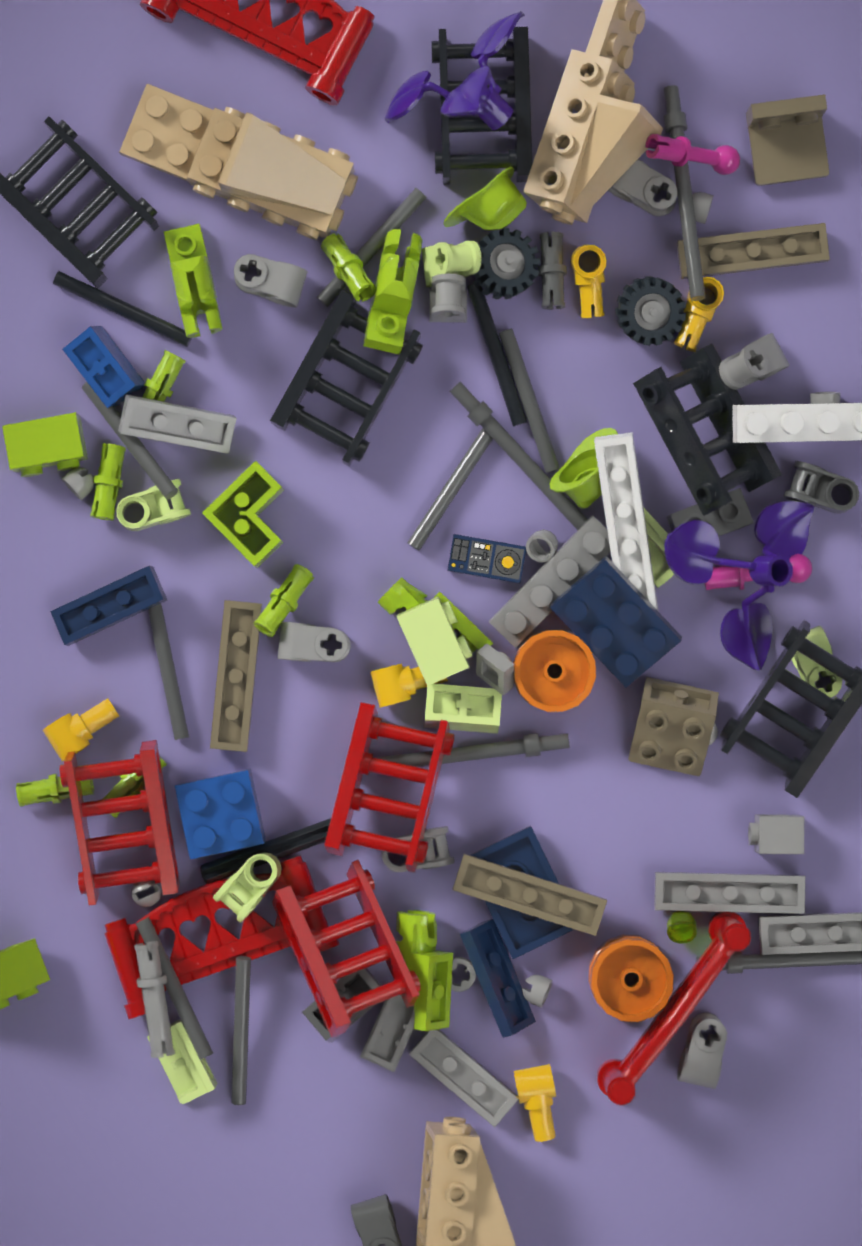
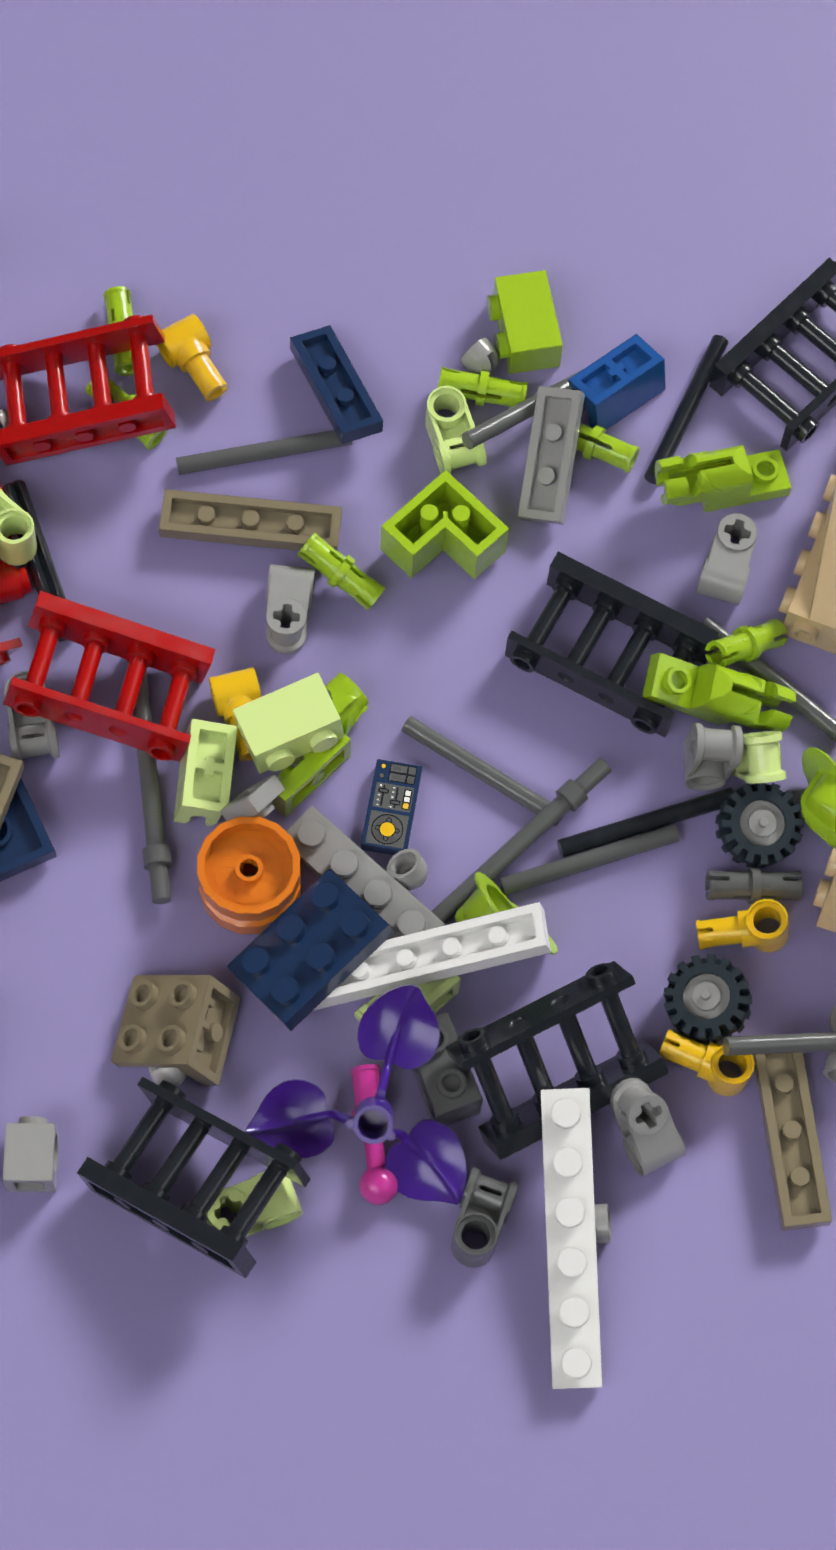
camera: 90 degrees right, 20 degrees down
(220, 814) = (85, 499): blue brick -> none

